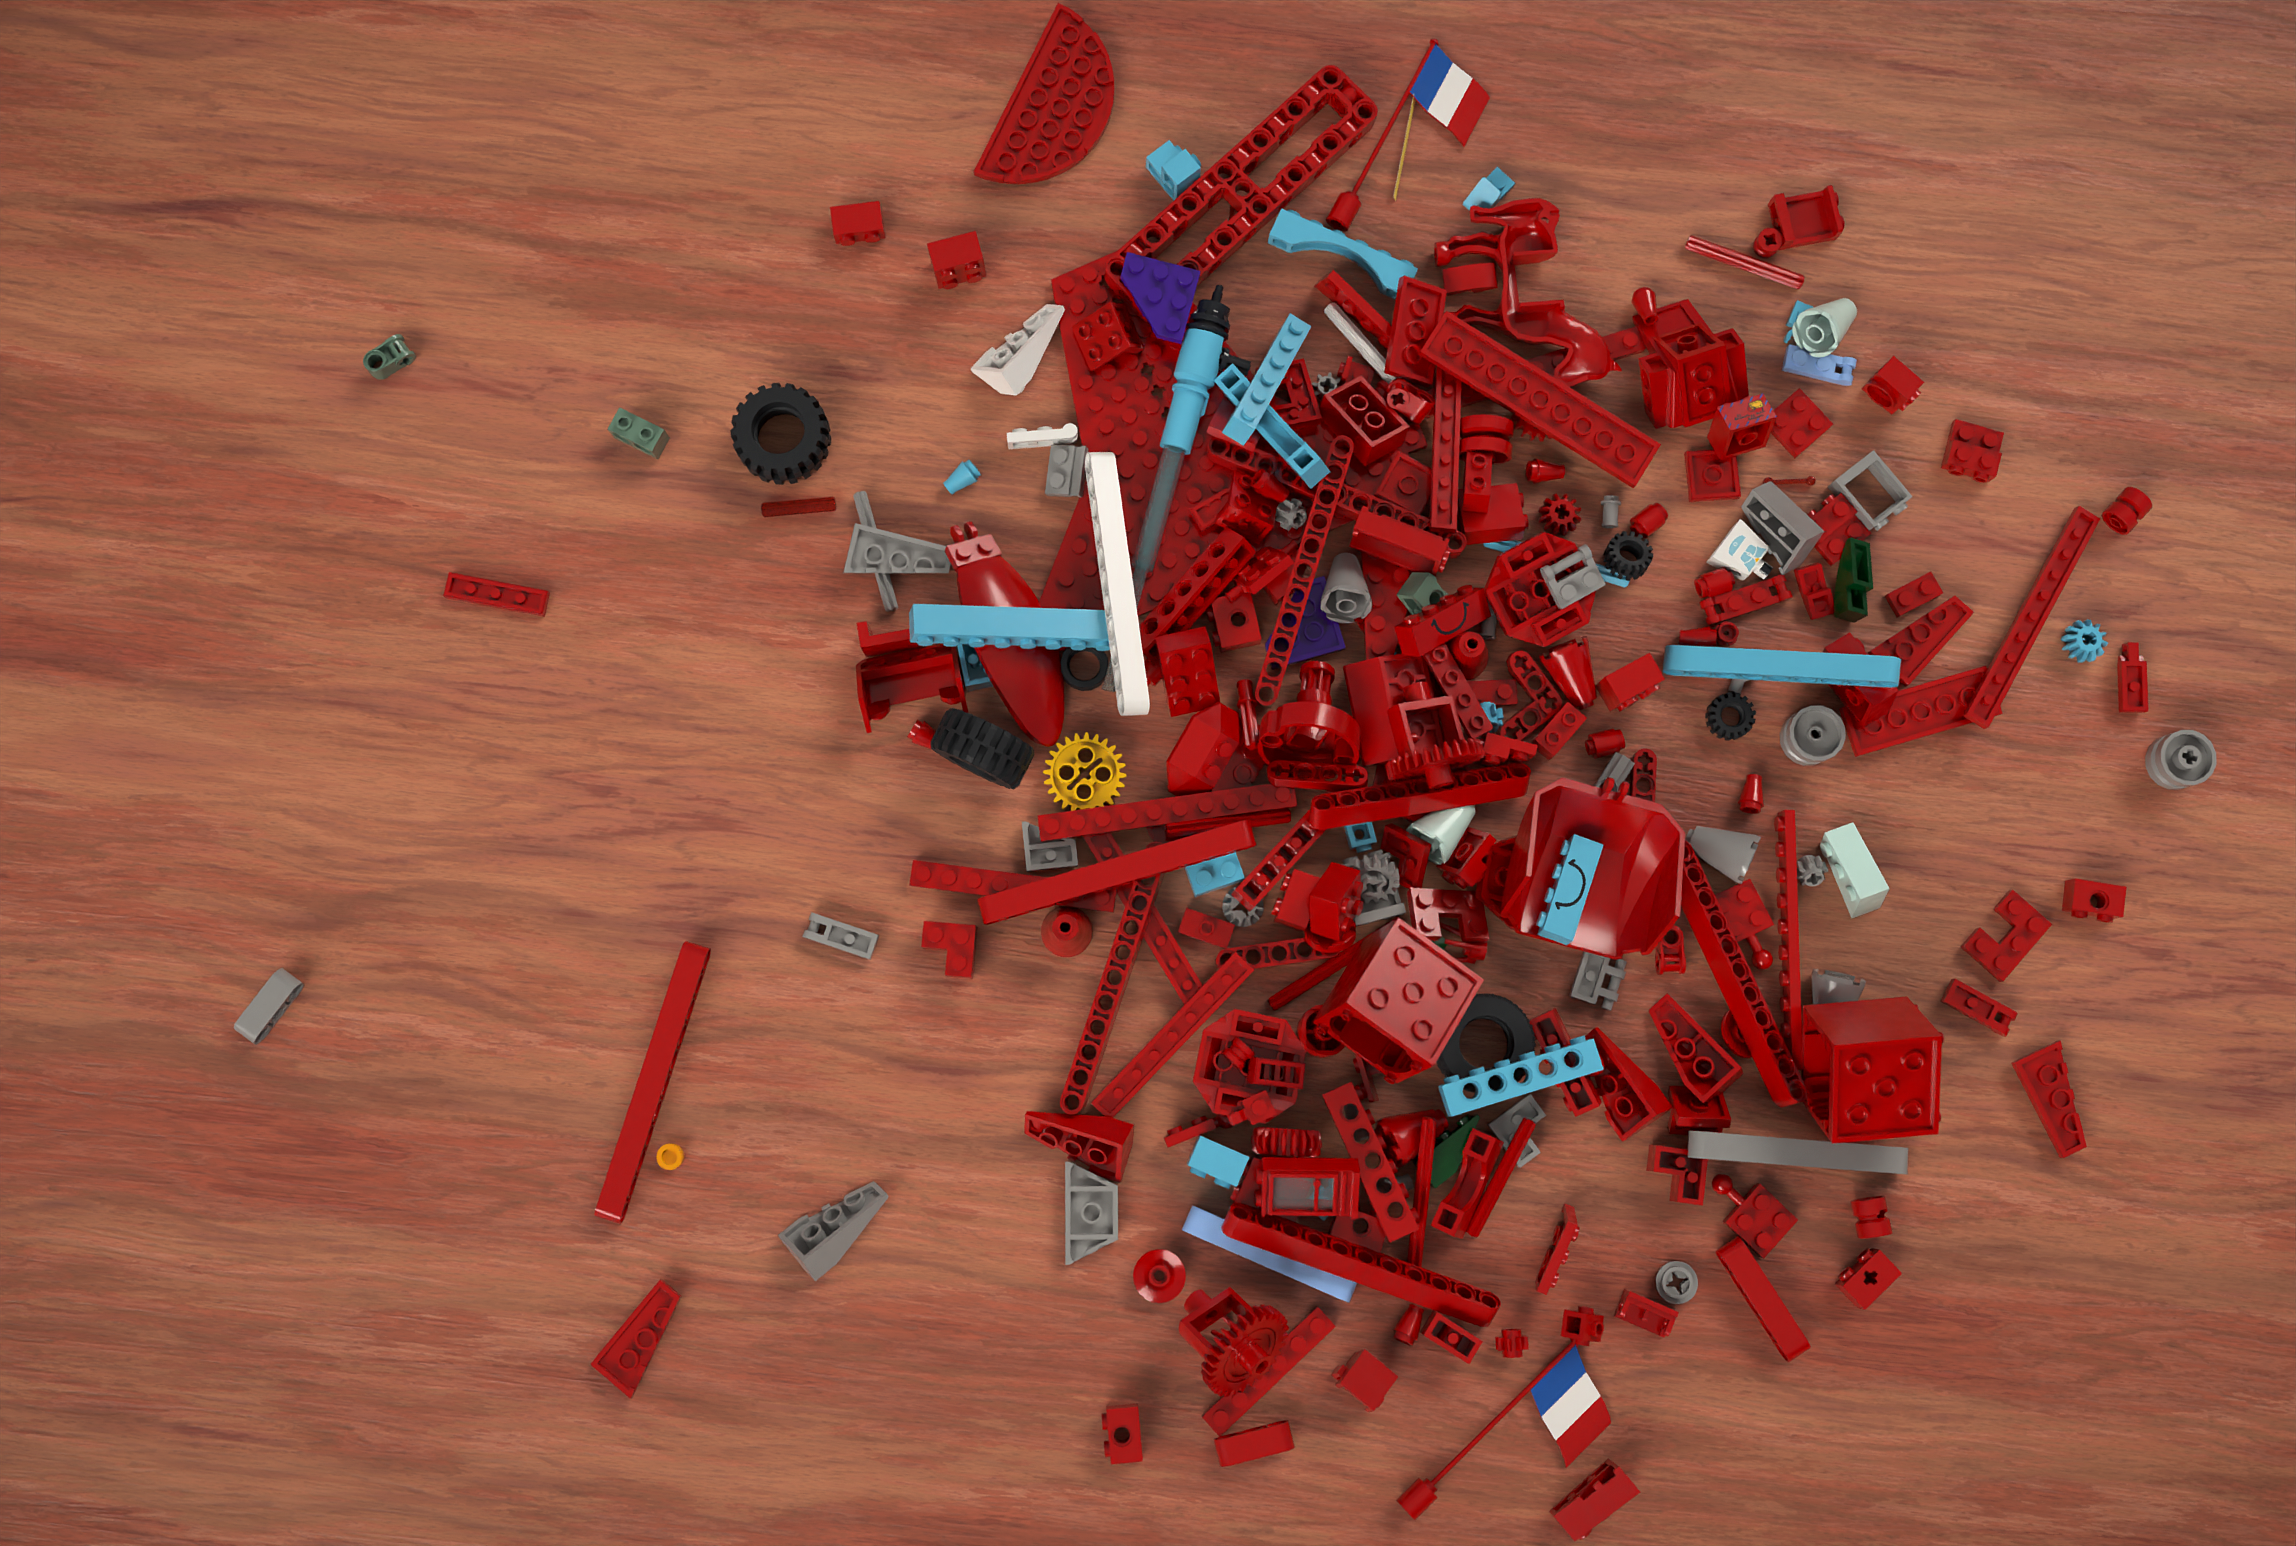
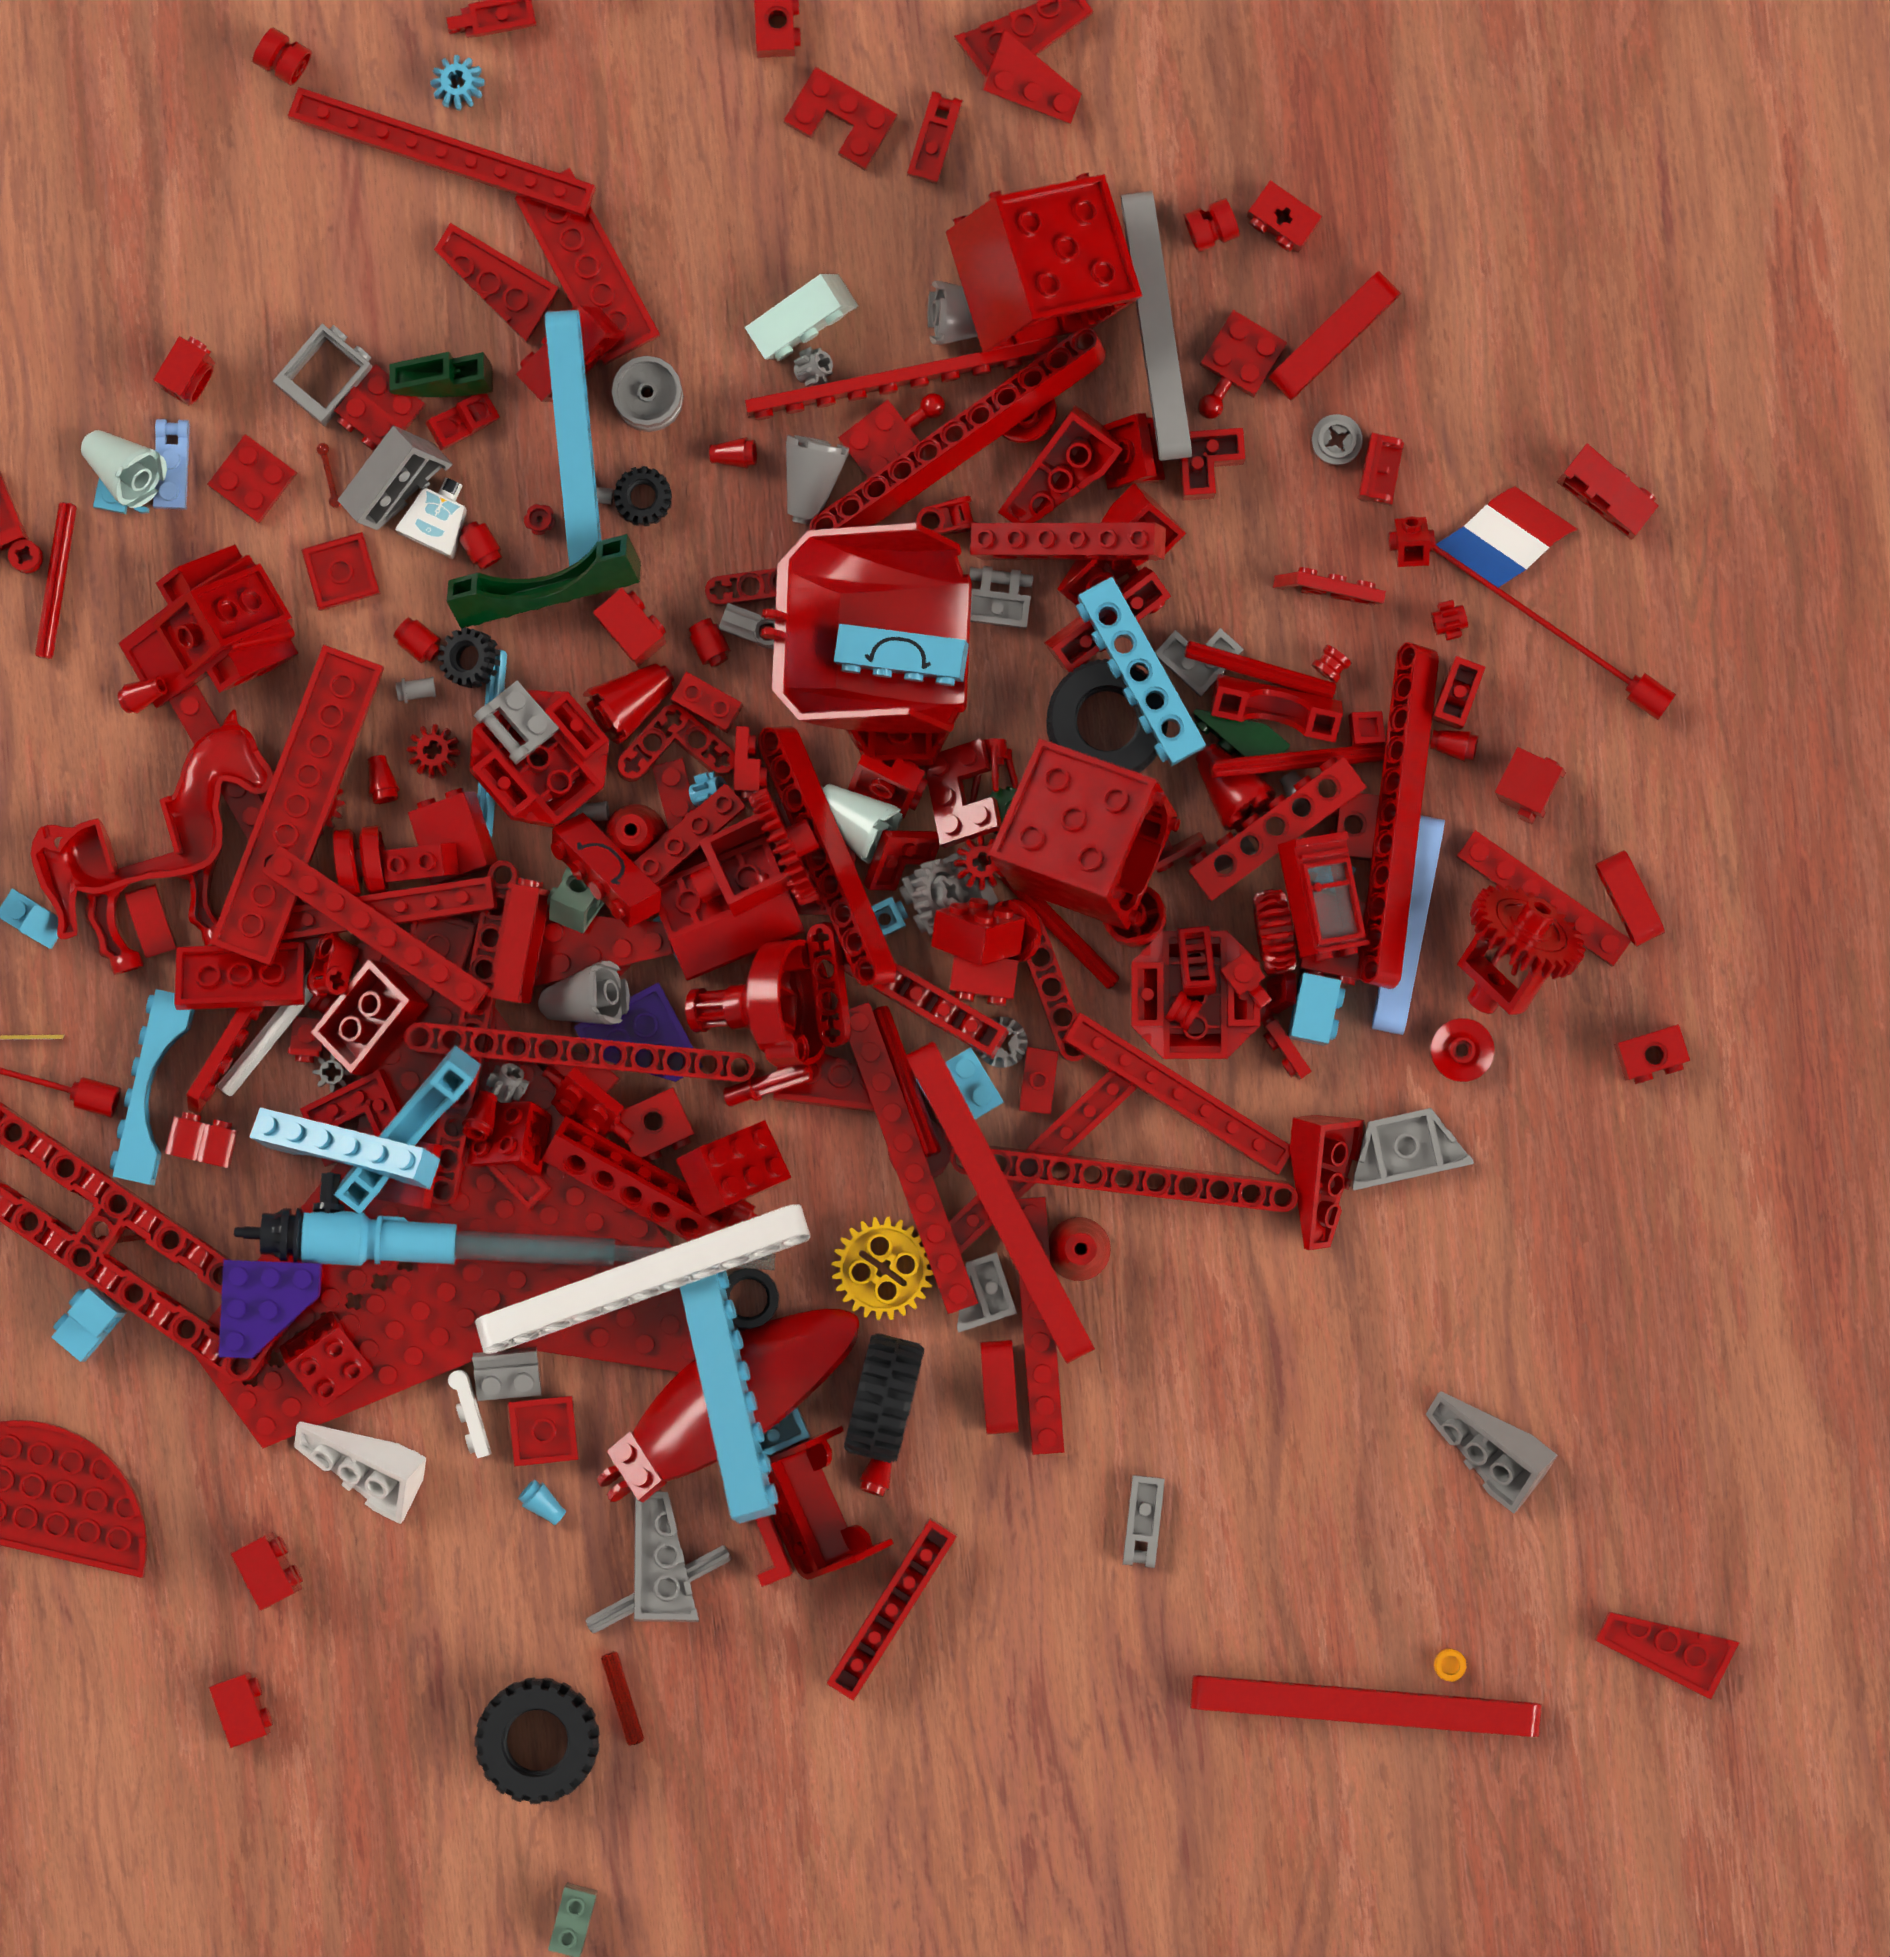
camera: 100 degrees left, 5 degrees up
(817, 723) = (891, 1609): none -> red brick
(957, 940) = (1118, 1378): red brick -> none
(971, 845) = (999, 1387): none -> red beam
(1016, 489) = (543, 1431): none -> red plate
(1203, 750) = (825, 1128): red wedge -> none
(1236, 1137) = (1282, 992): none -> red plate
(1293, 281) = (202, 1141): none -> red brick
(1381, 909) = (972, 871): none -> red gear
(1431, 434) = (375, 930): none -> red plate
(1436, 1254) = (1367, 728): none -> red tile
(1494, 1237) = (1331, 664): none -> red wheel
(1636, 1043) = (1068, 541): none -> red brick
(1673, 576) = (485, 598): none -> dark green arch
(1698, 637) = (553, 550): red cone -> none
(1741, 426) = (278, 549): red brick -> none
(1745, 600) = (492, 502): red plate -> none
(1913, 594) = (441, 298): red plate -> none
(1972, 451) = (243, 256): red plate -> none
(2013, 1093) = (1029, 82): none -> red wing

